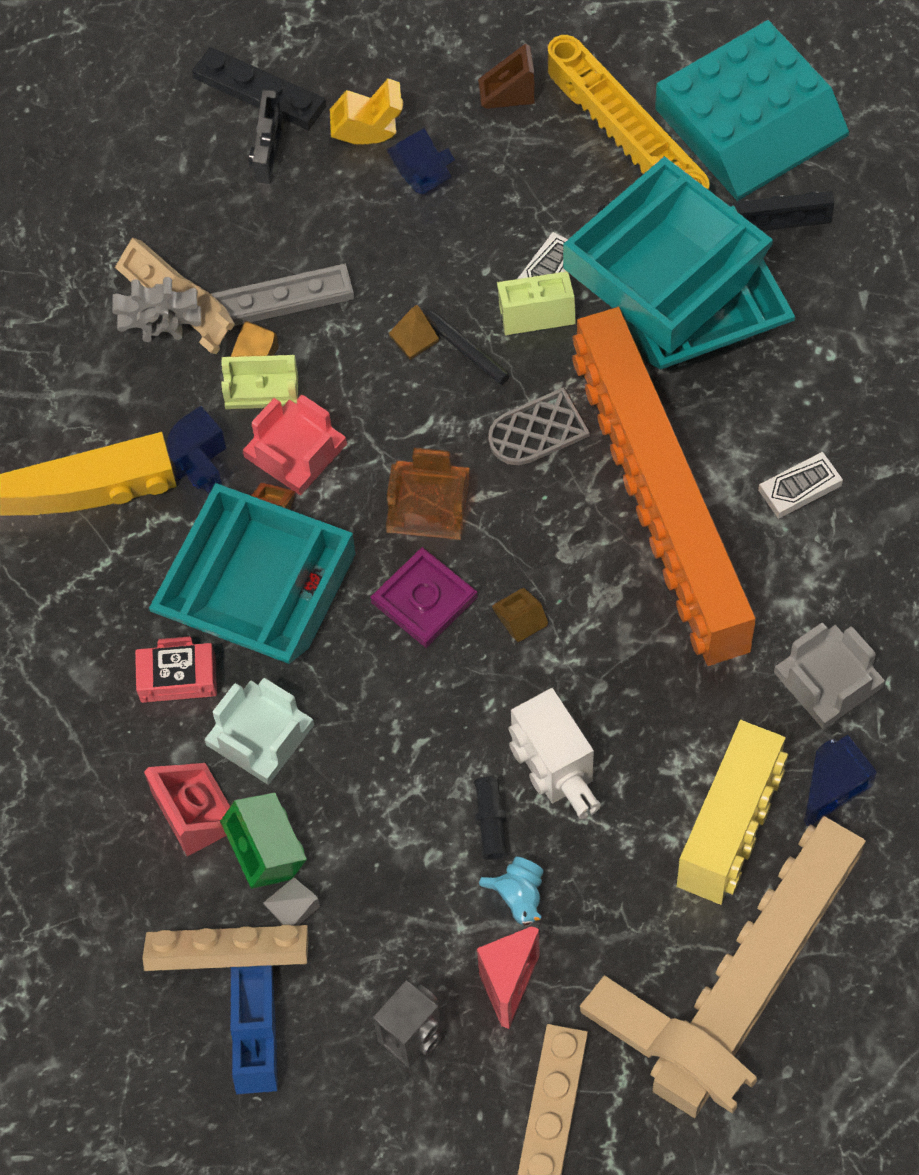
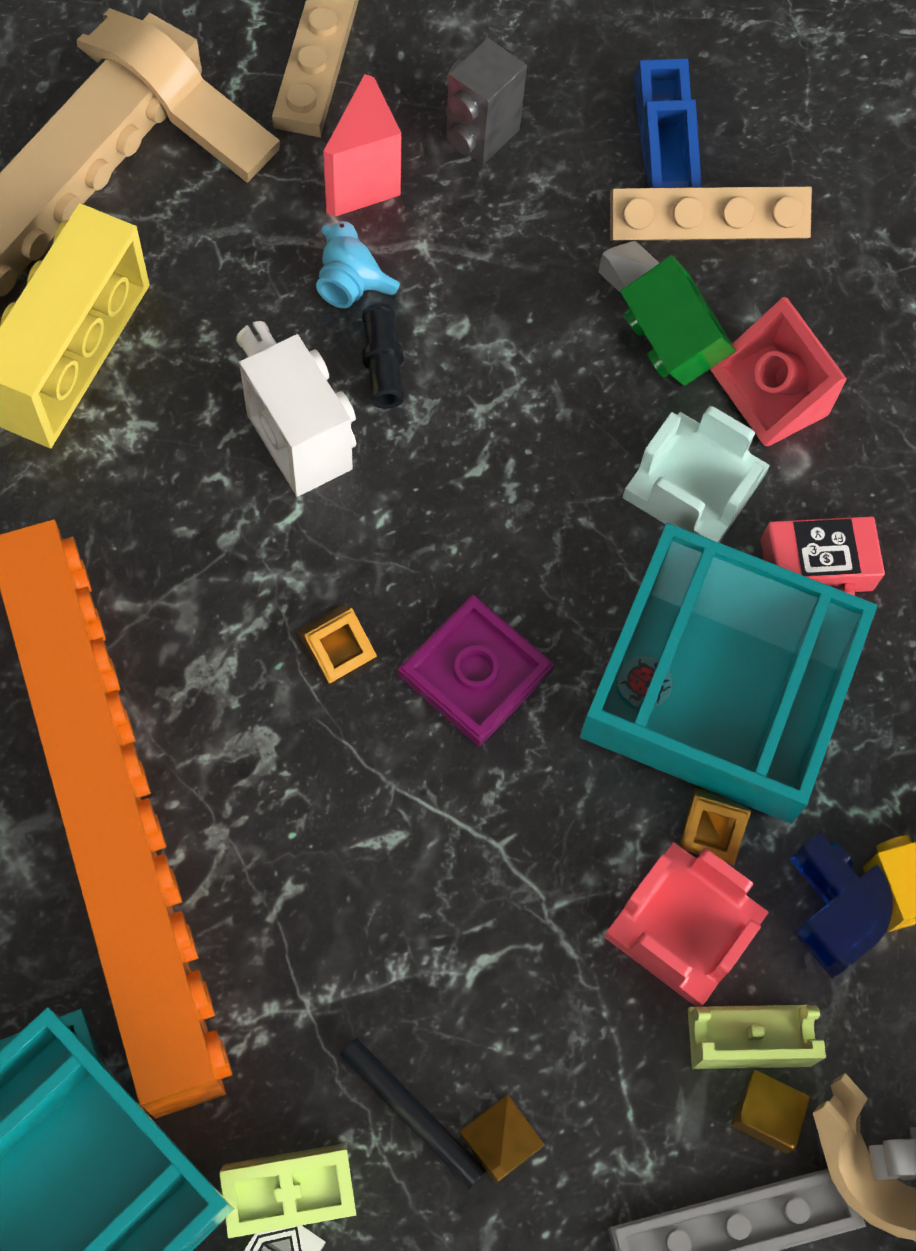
camera: 170 degrees right, 5 degrees up
(427, 495) = (473, 823): clear orange panel -> none
(537, 454) = (297, 908): light grey window -> none

